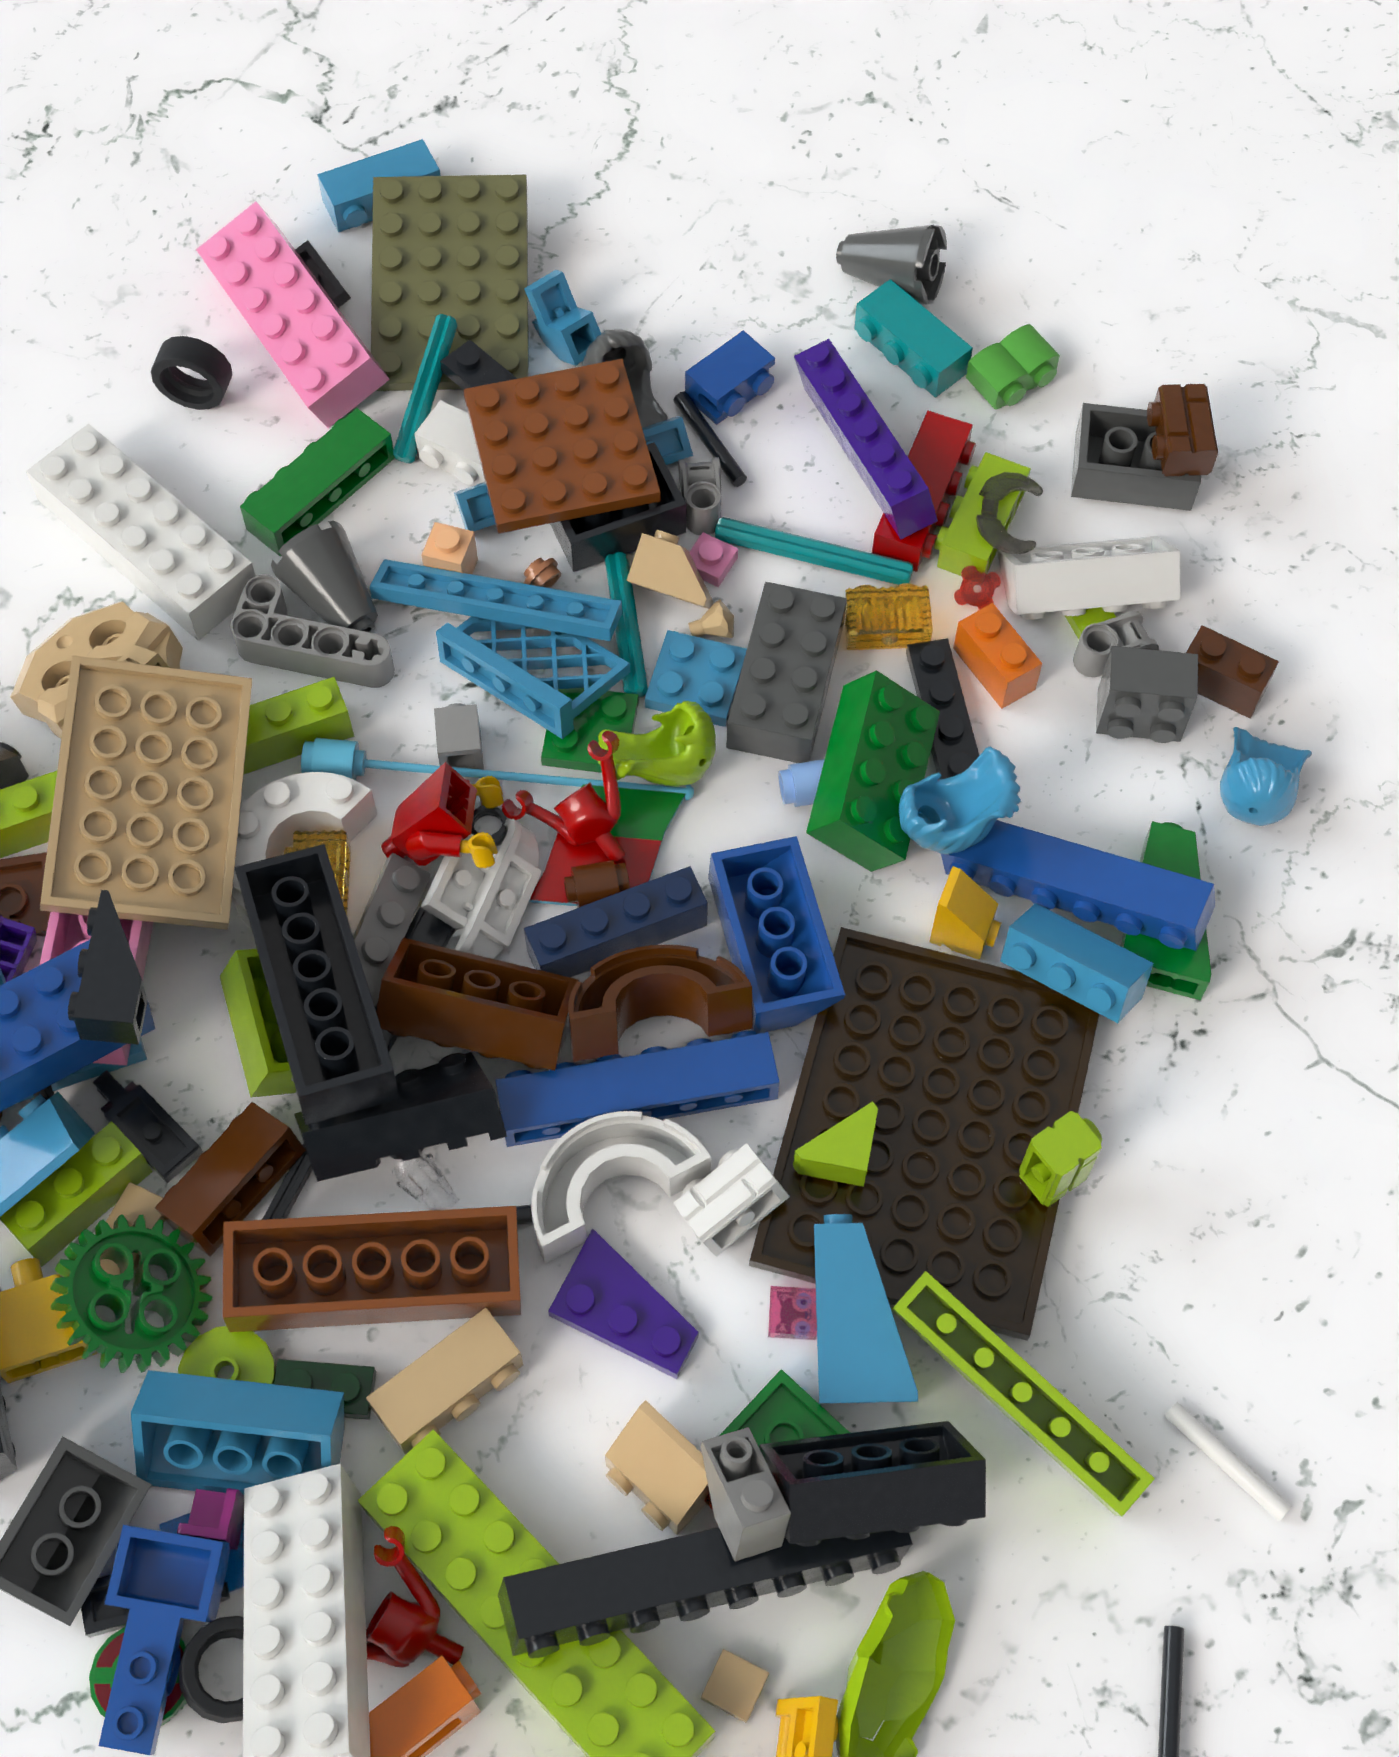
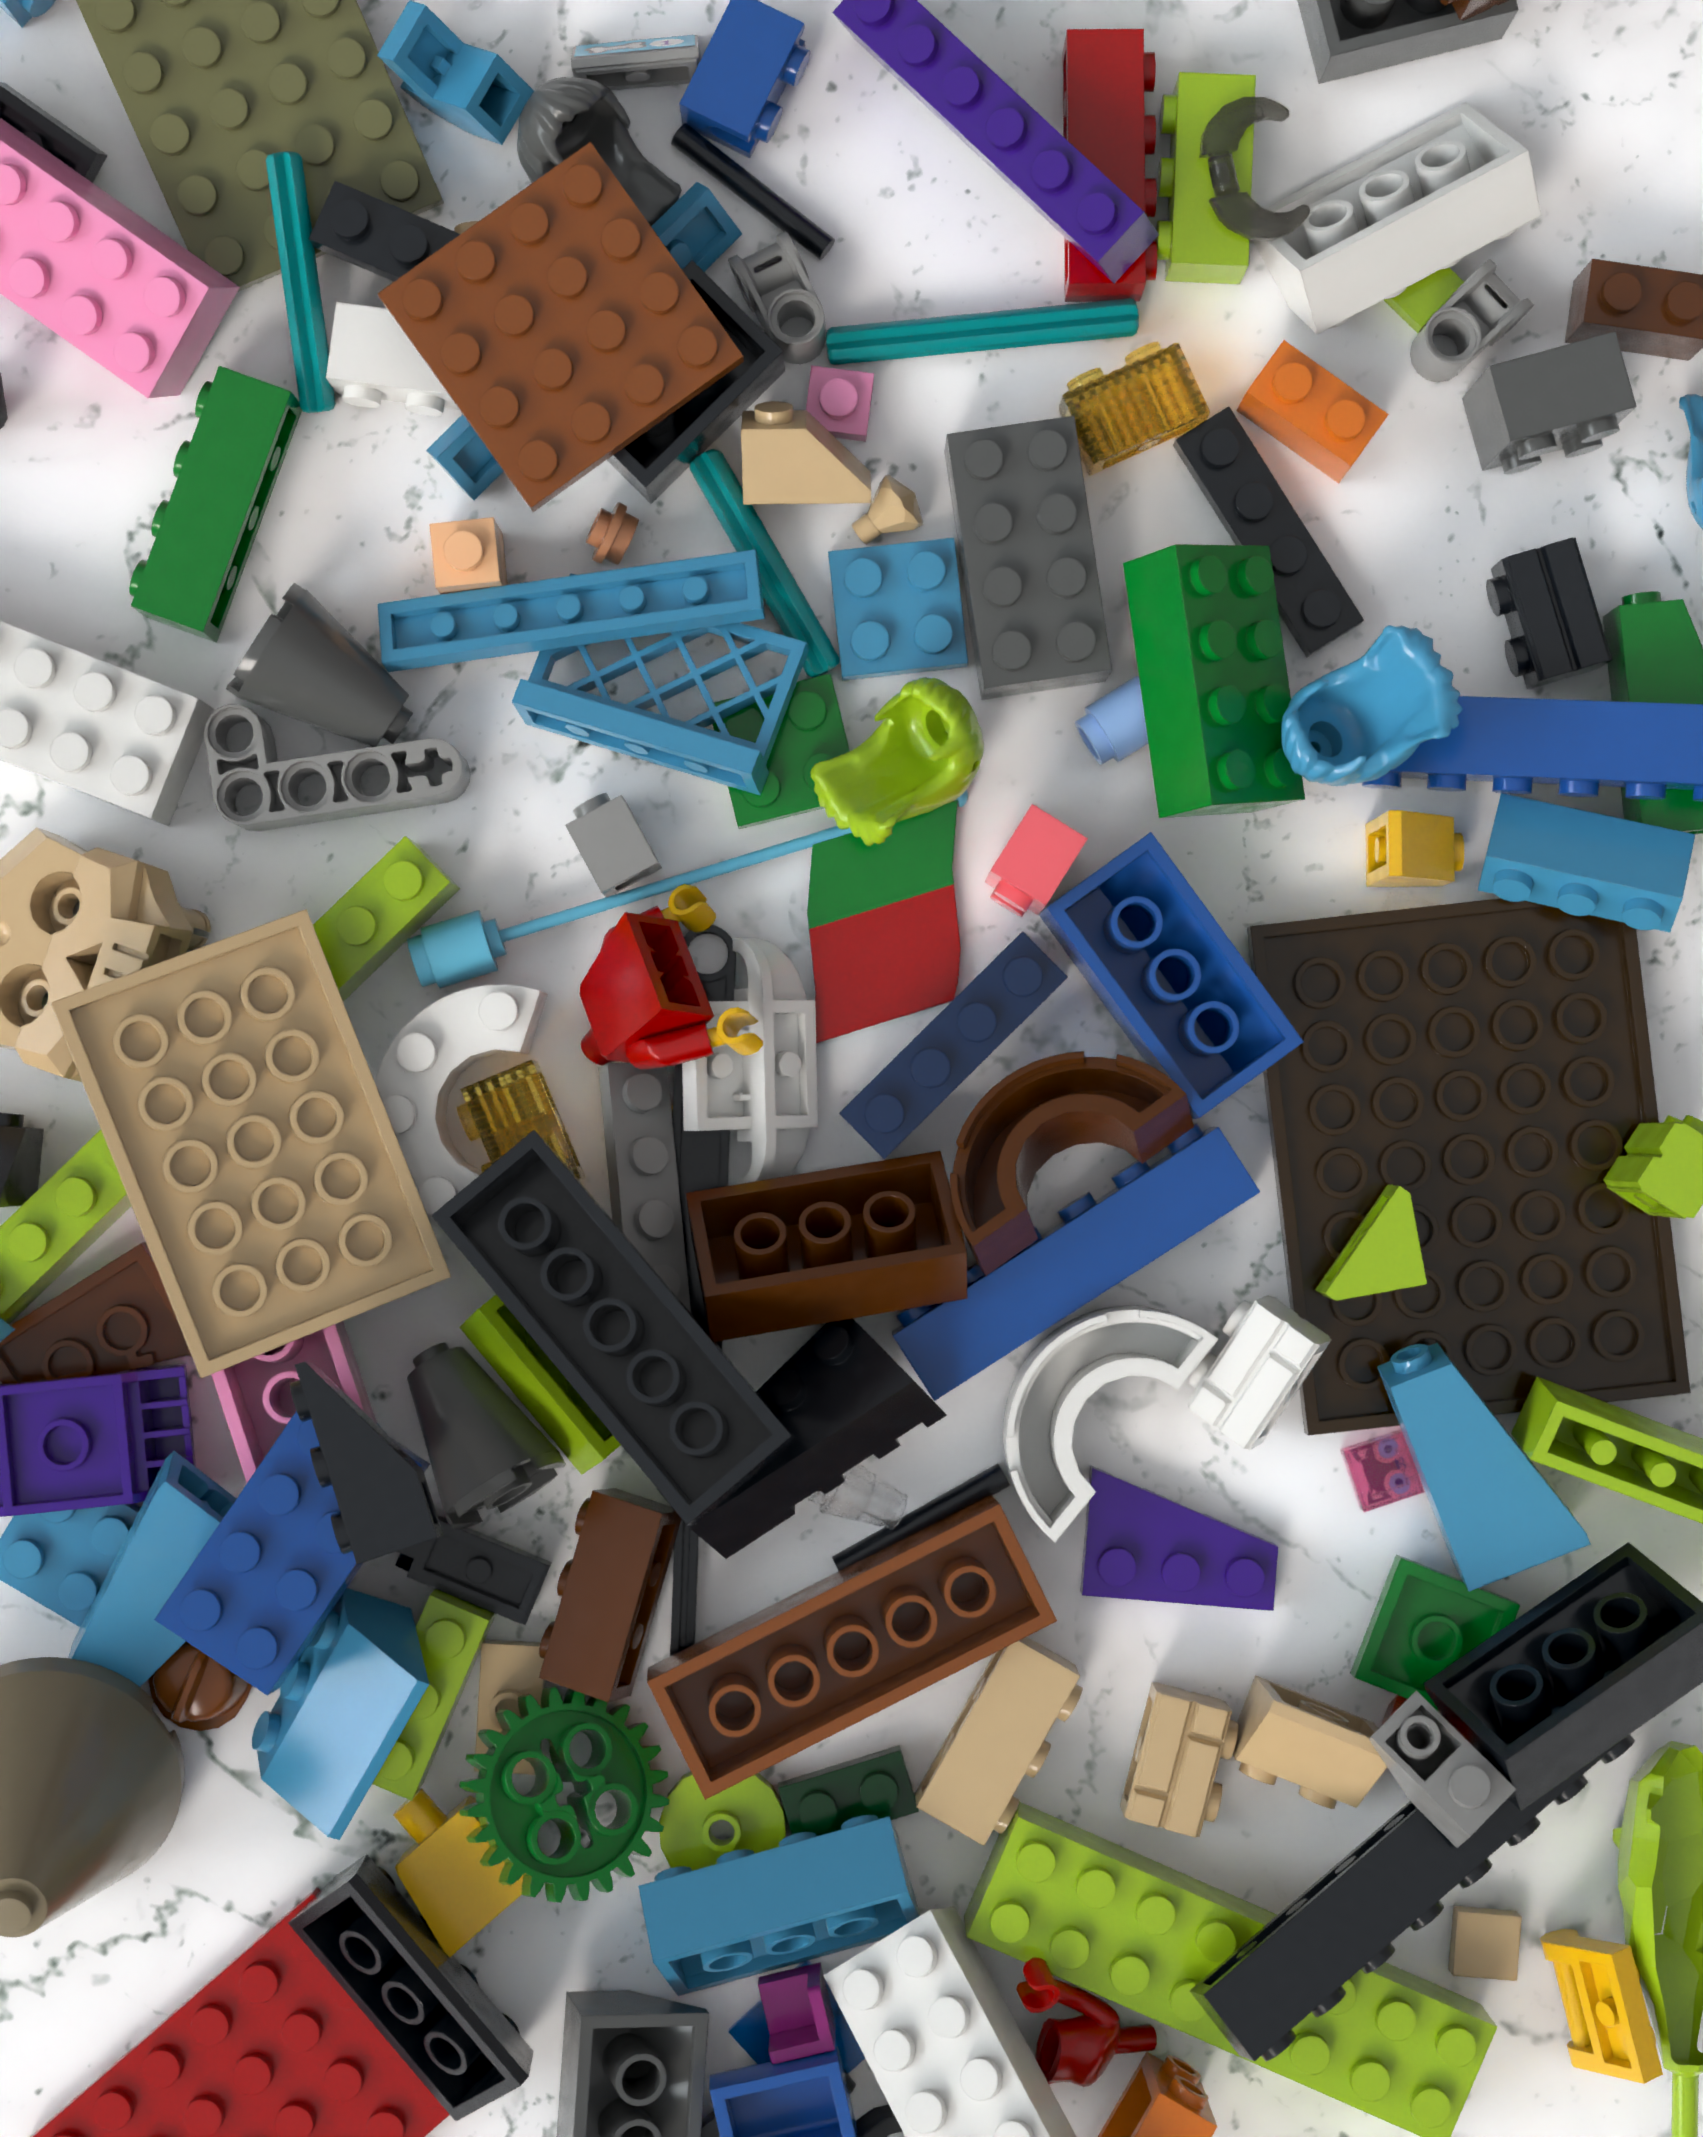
camera: 20 degrees left, 25 degrees up
(194, 1050) = (476, 1437): none -> dark grey cone
(564, 1450) = (1178, 1760): none -> tan brick
(584, 814) = (836, 903): red piece -> none
(595, 882) = (901, 996): reddish brown brick -> none
(671, 354) = (638, 62): none -> light grey slope
(714, 825) = (1034, 862): none -> coral brick
(971, 578) = (1250, 319): clear red plate -> none
(1107, 812) = (1548, 614): none -> black brick

